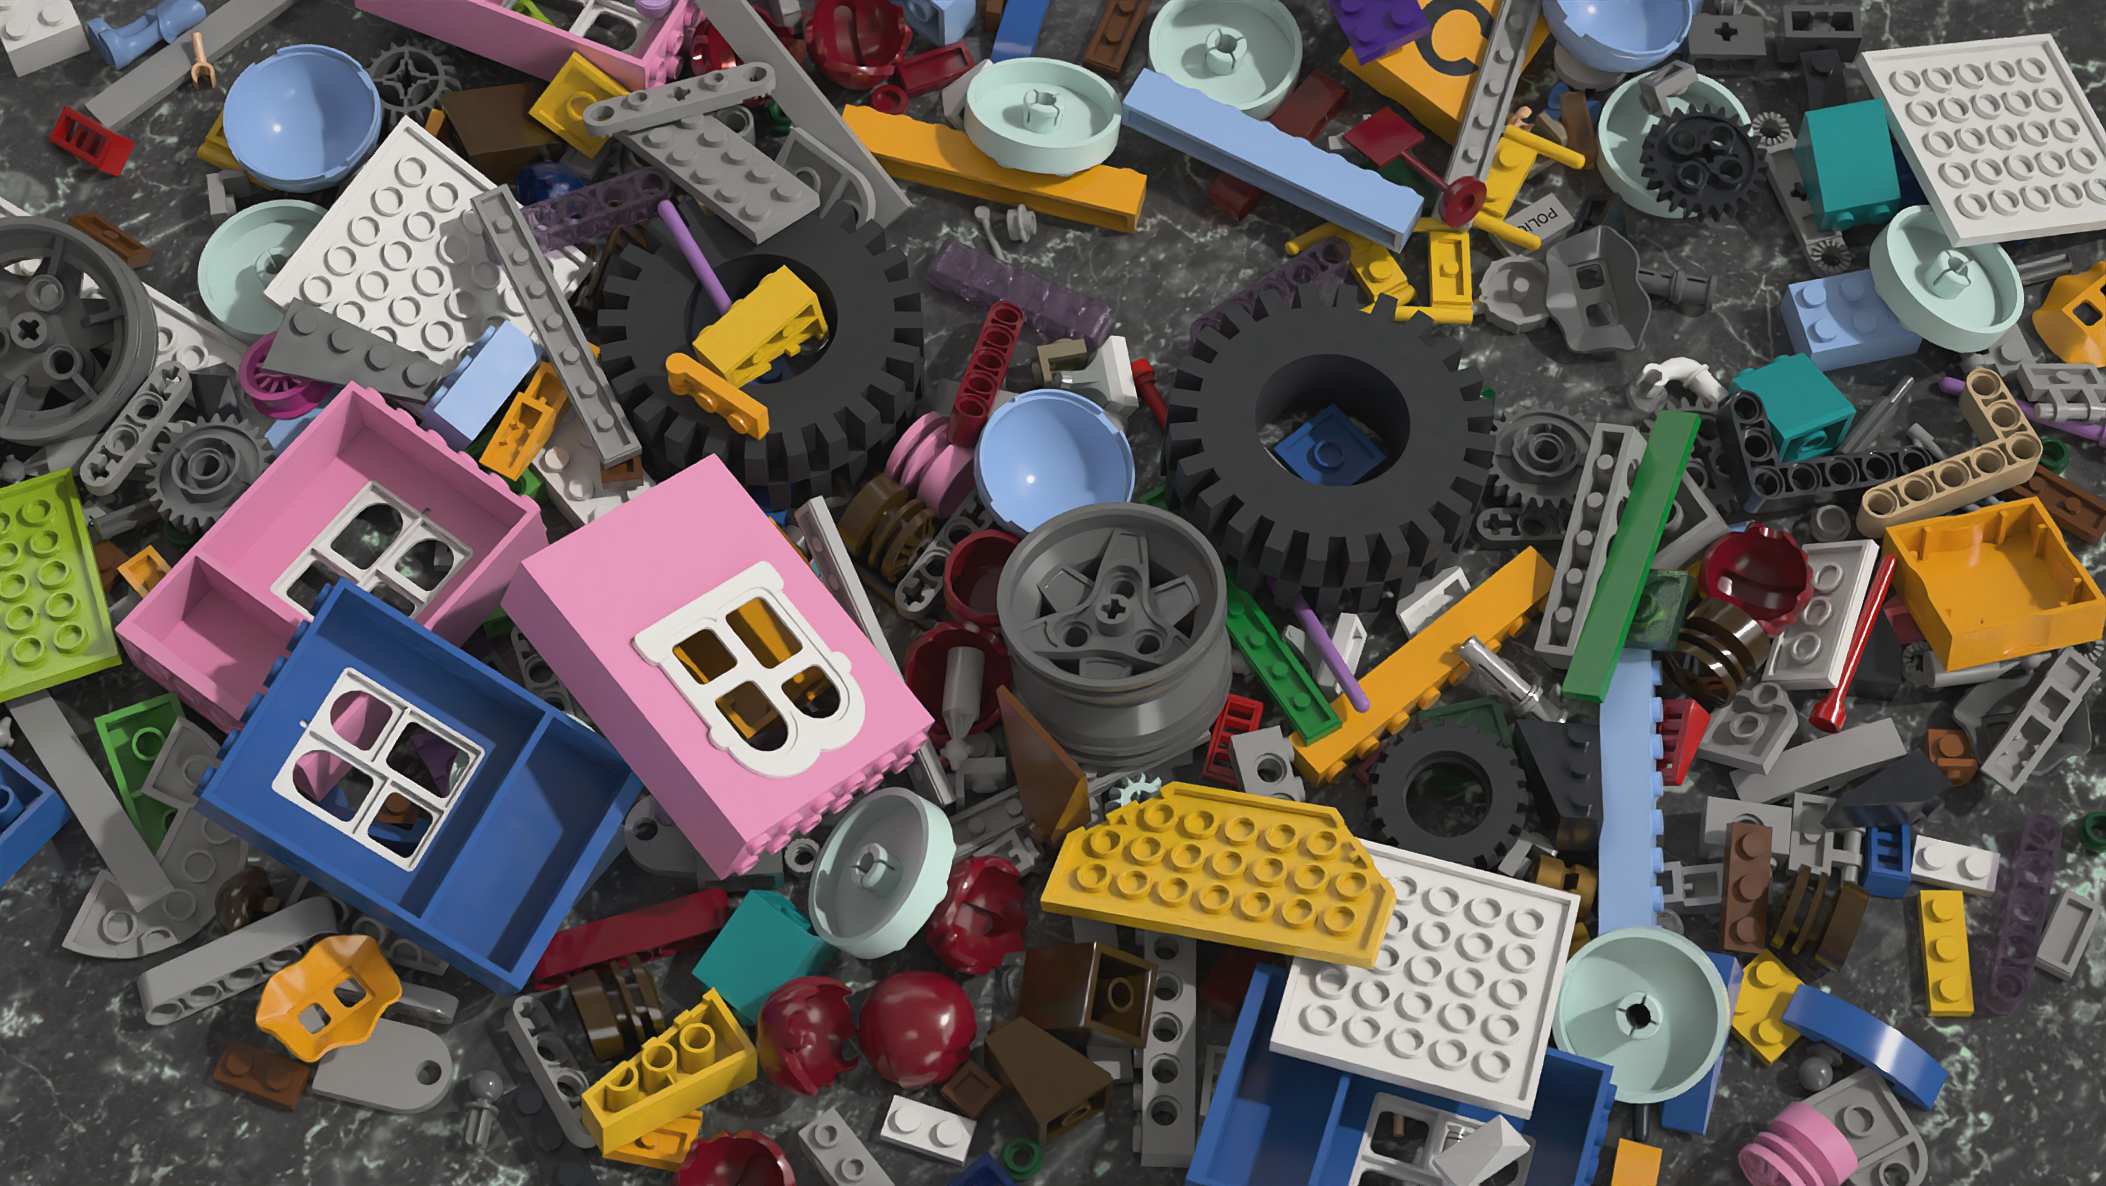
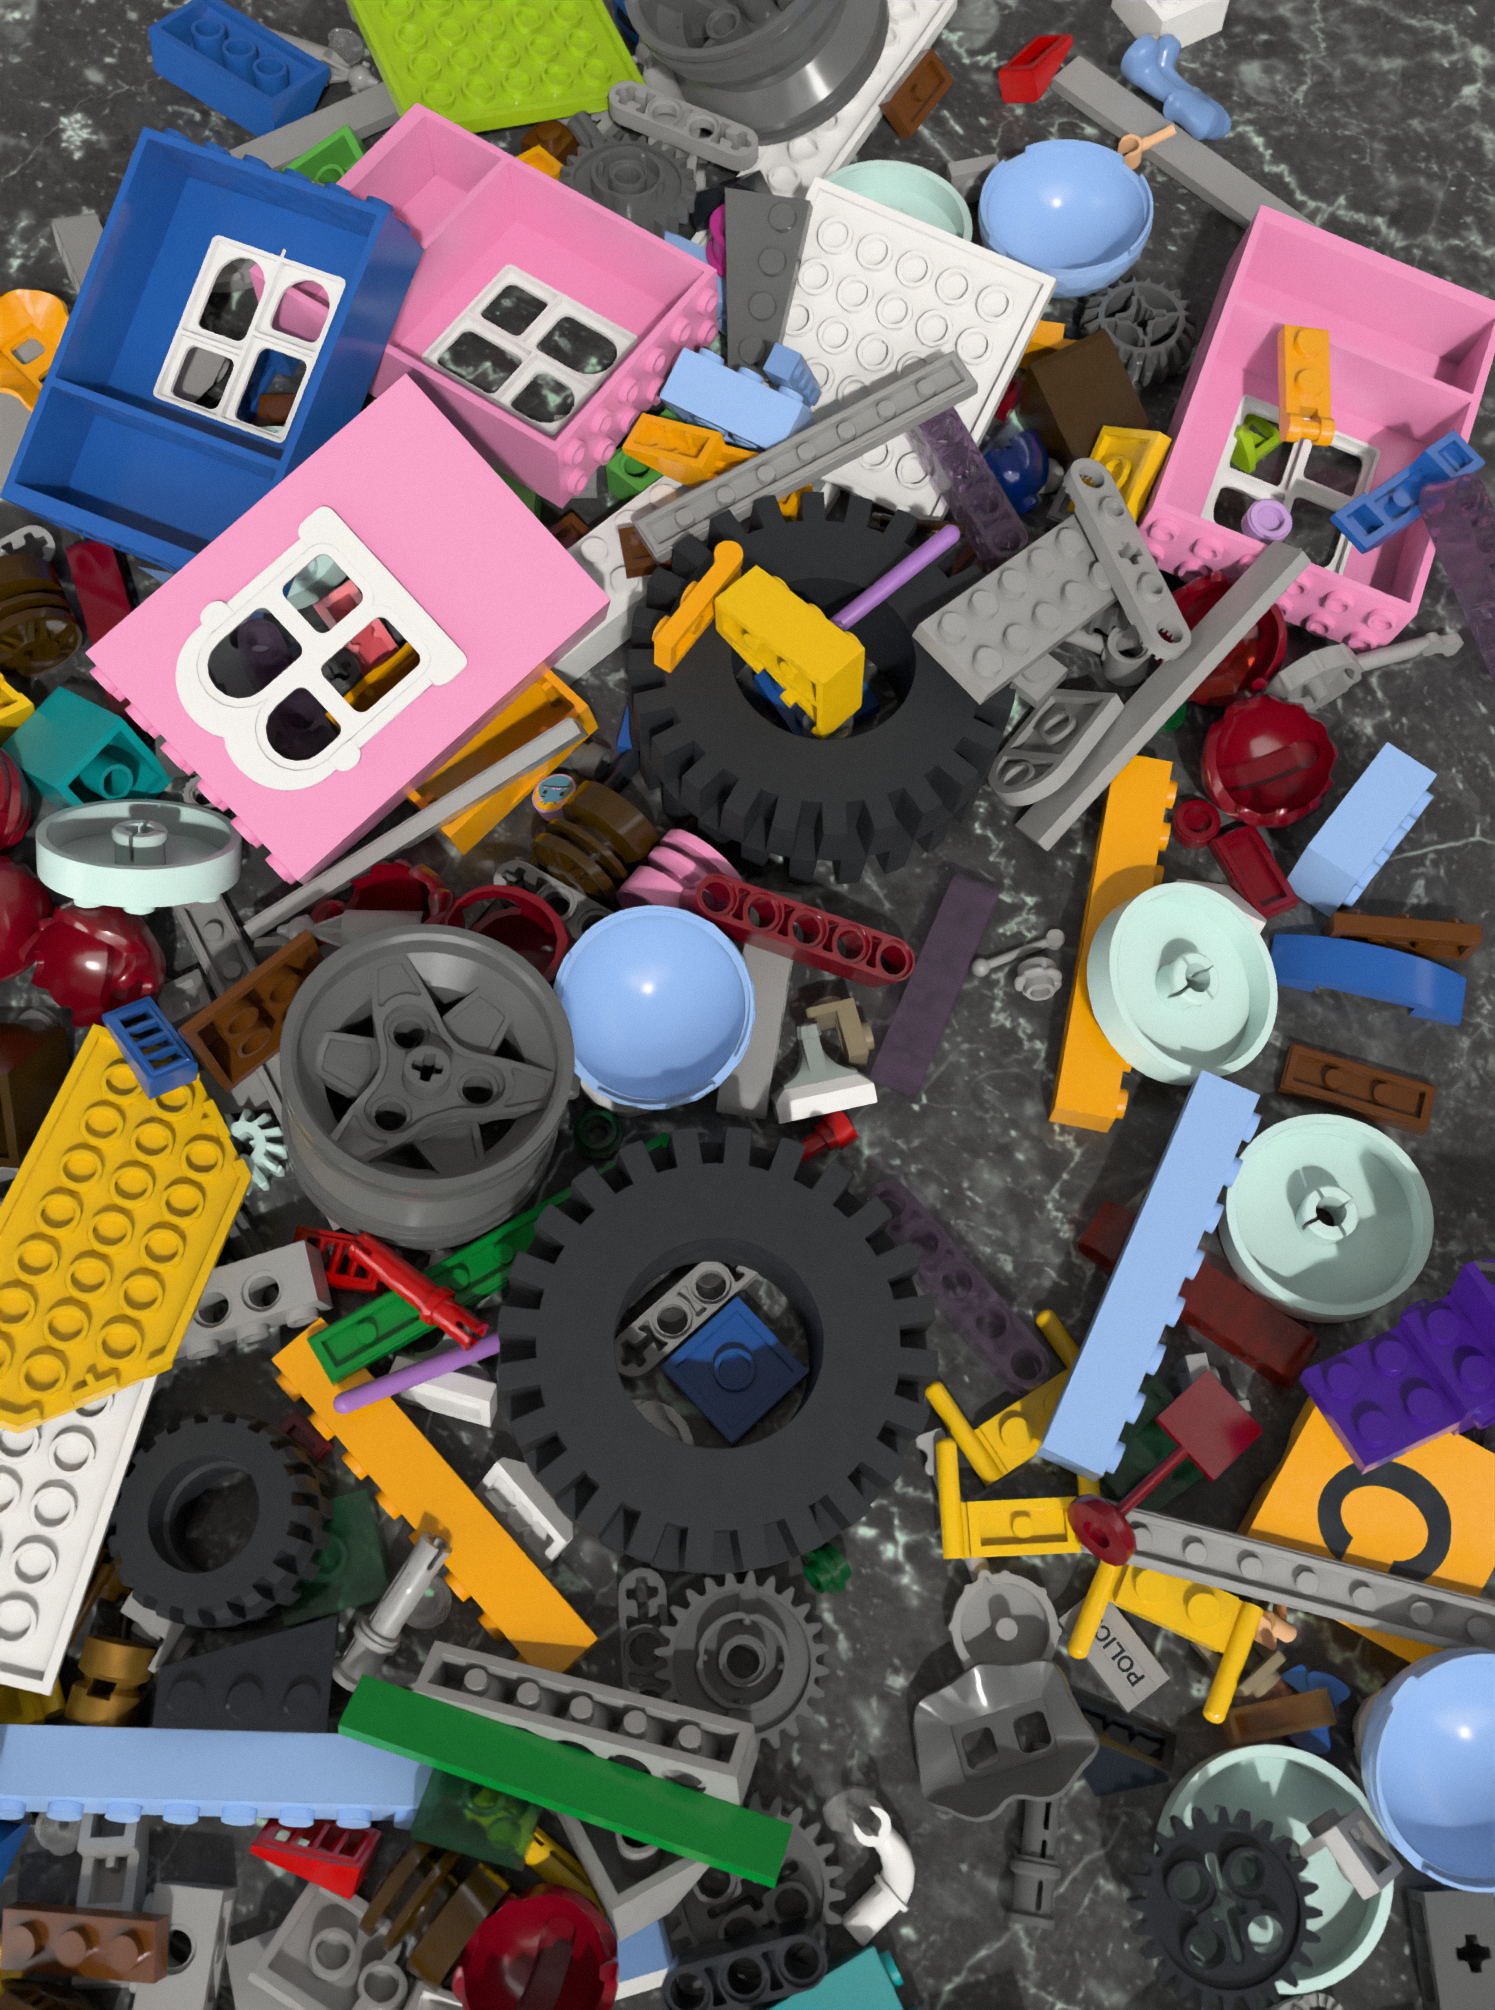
camera: 90 degrees right, 5 degrees up
(466, 333) = (791, 370): none -> medium blue piece
(1068, 833) = (152, 1080): none -> blue slope
(1283, 644) = (434, 1303): none -> red pin

